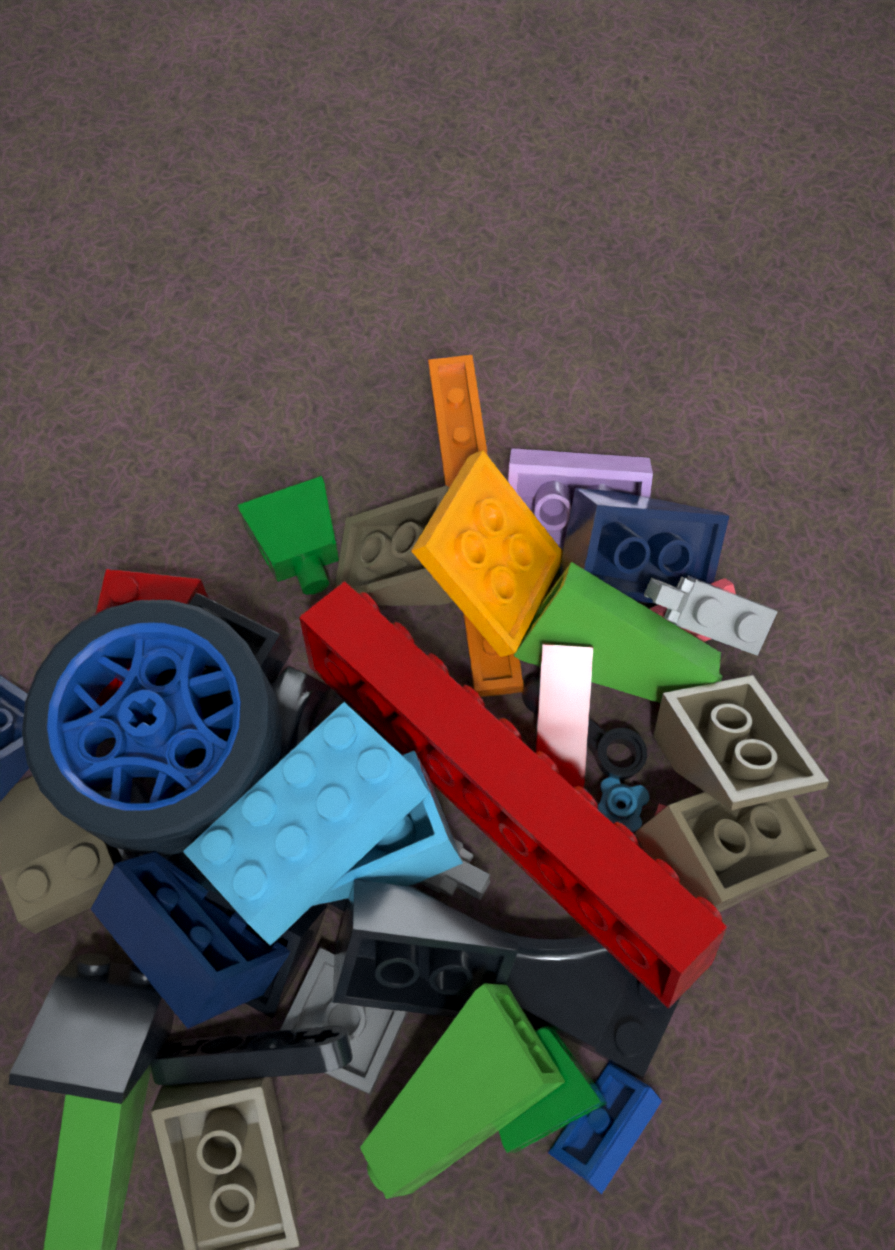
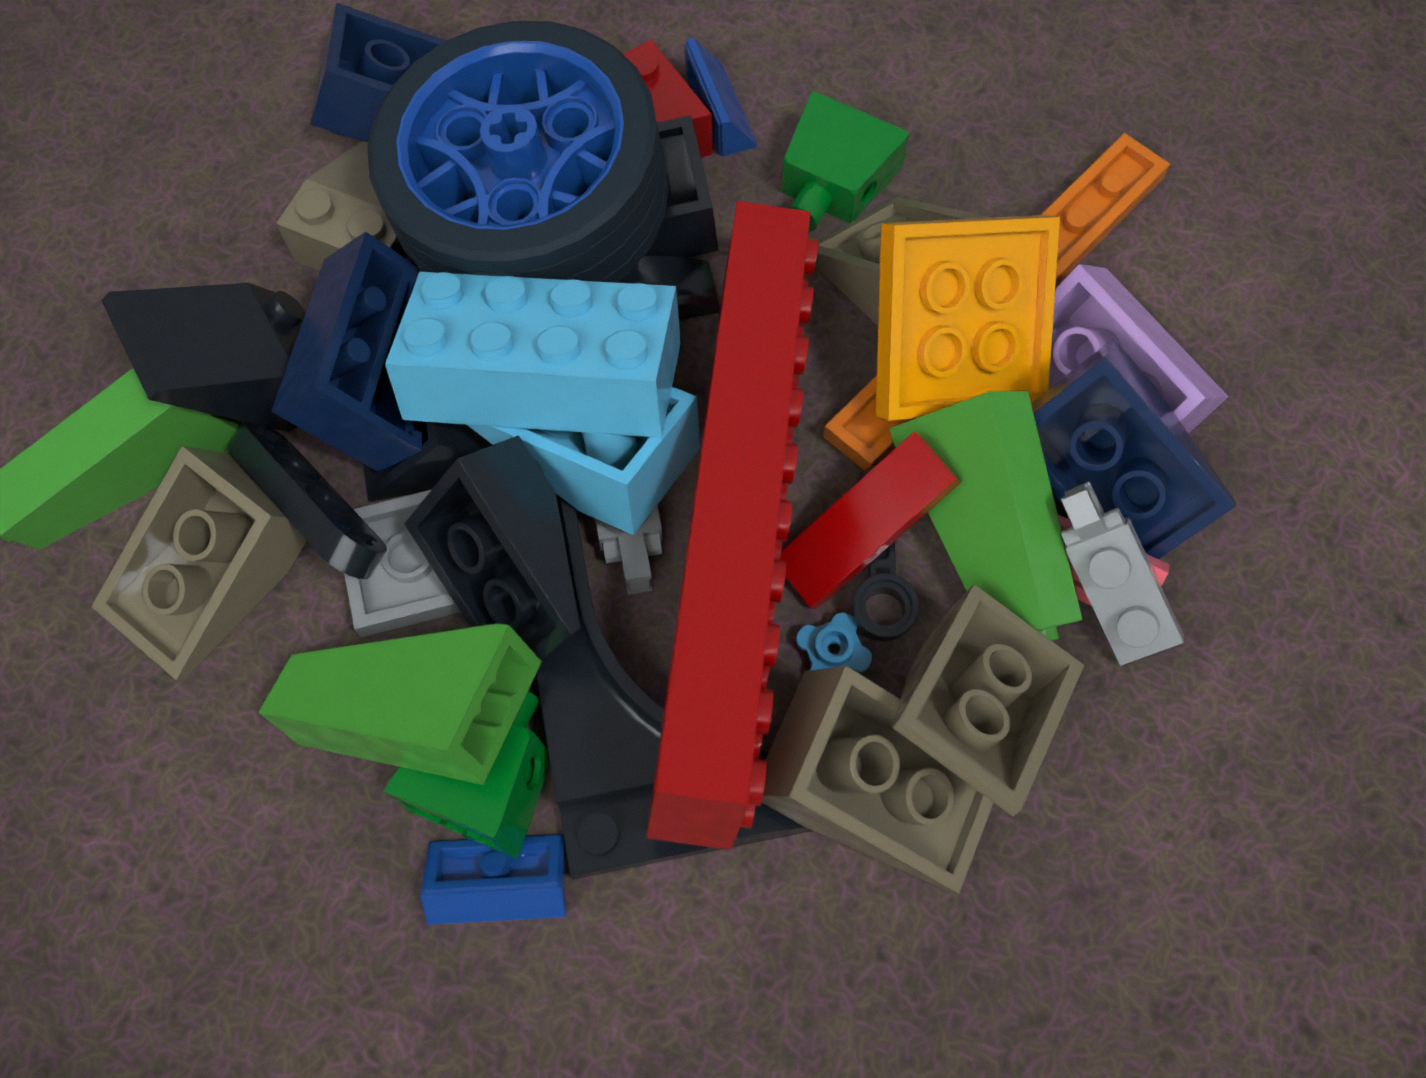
camera: 50 degrees right, 0 degrees up
(163, 560) = (712, 86): none -> blue slope

